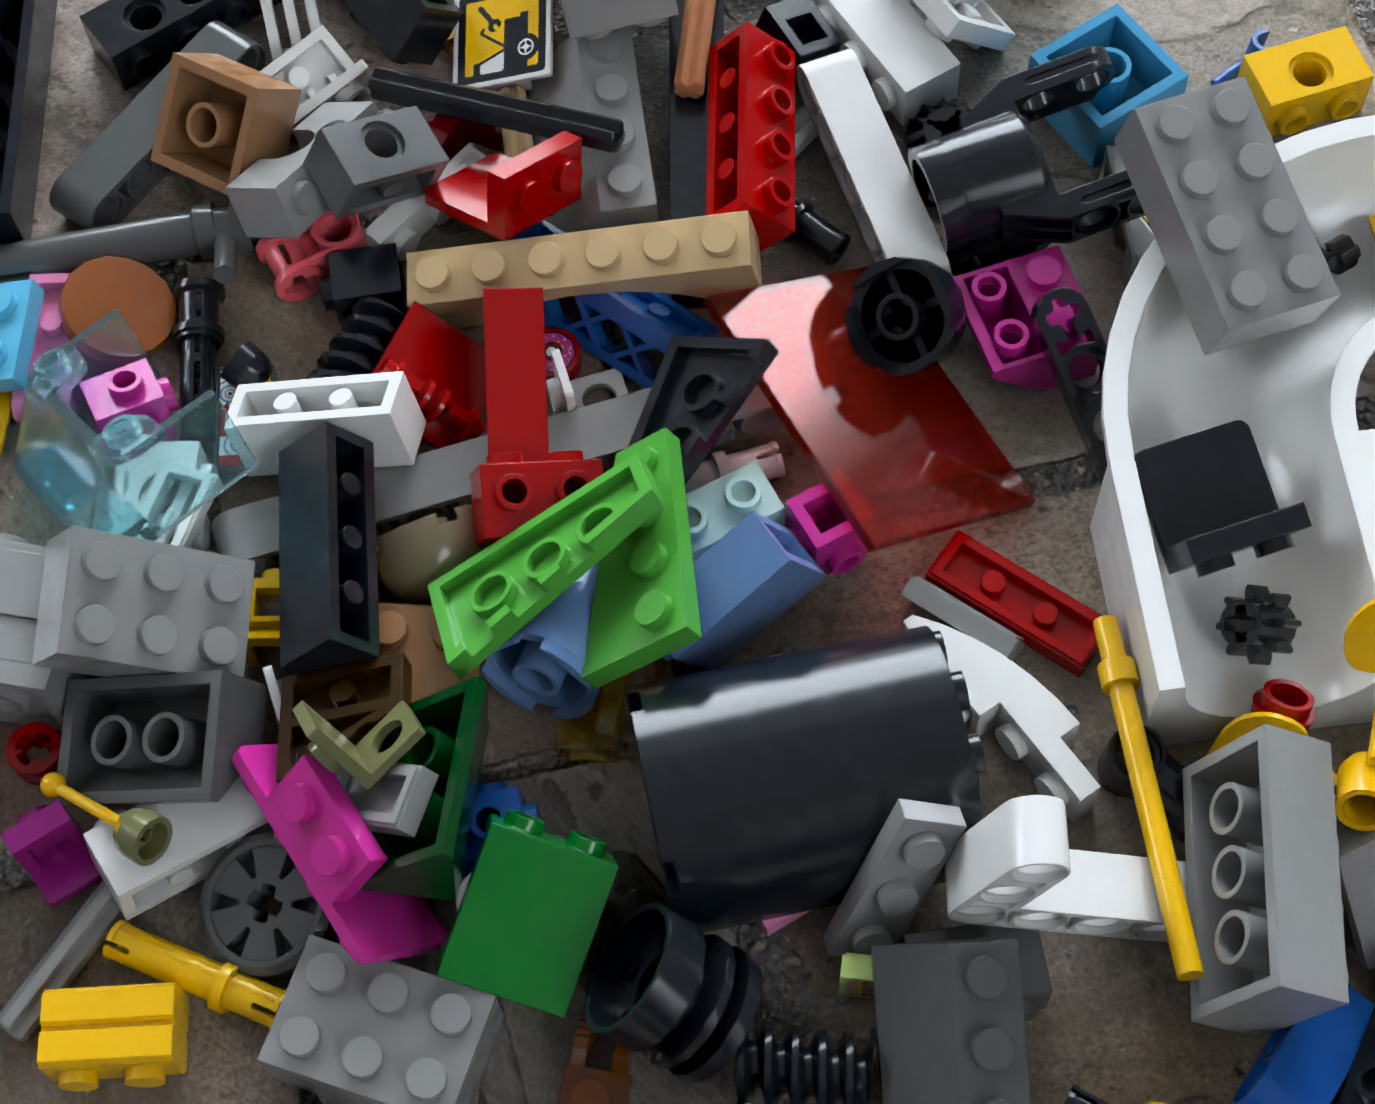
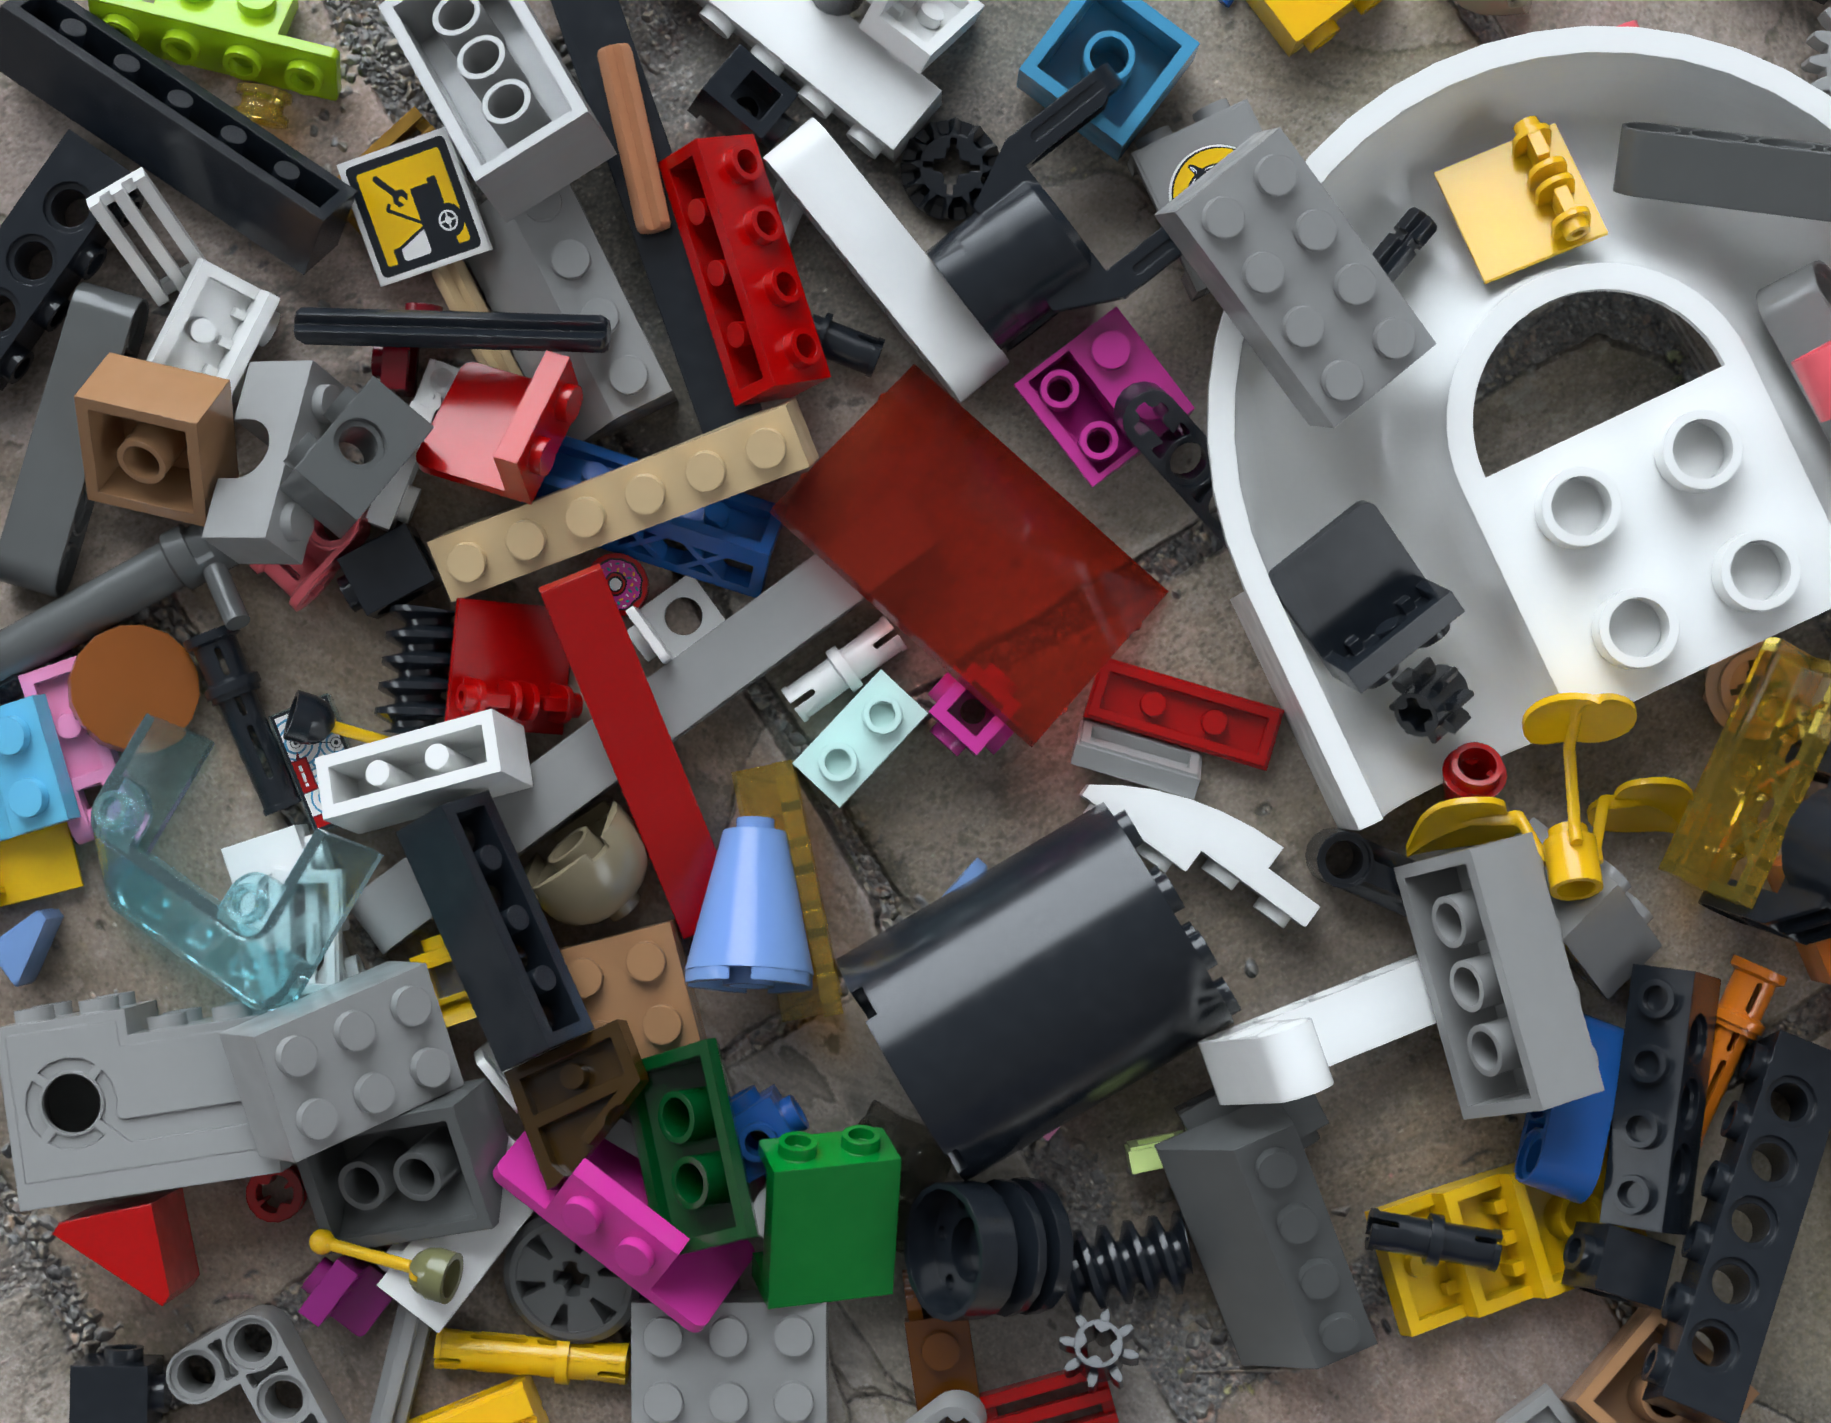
camera: 20 degrees left, 25 degrees up
(128, 391) = (205, 805): dark pink brick -> none
(362, 759) = (619, 1152): olive bracket -> none
(395, 800) = (659, 1173): light grey tile -> none
(515, 491) = (682, 799): red brick -> none
(526, 570) = (709, 894): bright green wing -> none
(647, 583) = (820, 853): bright green wing -> none
(702, 390) = (796, 647): black wing -> none
(745, 587) = (910, 833): medium blue brick -> none
(894, 876) = (1159, 1081): light grey plate -> none
(905, 315) = (983, 448): black cylinder -> none
(1119, 681) = (1309, 793): yellow bar -> none

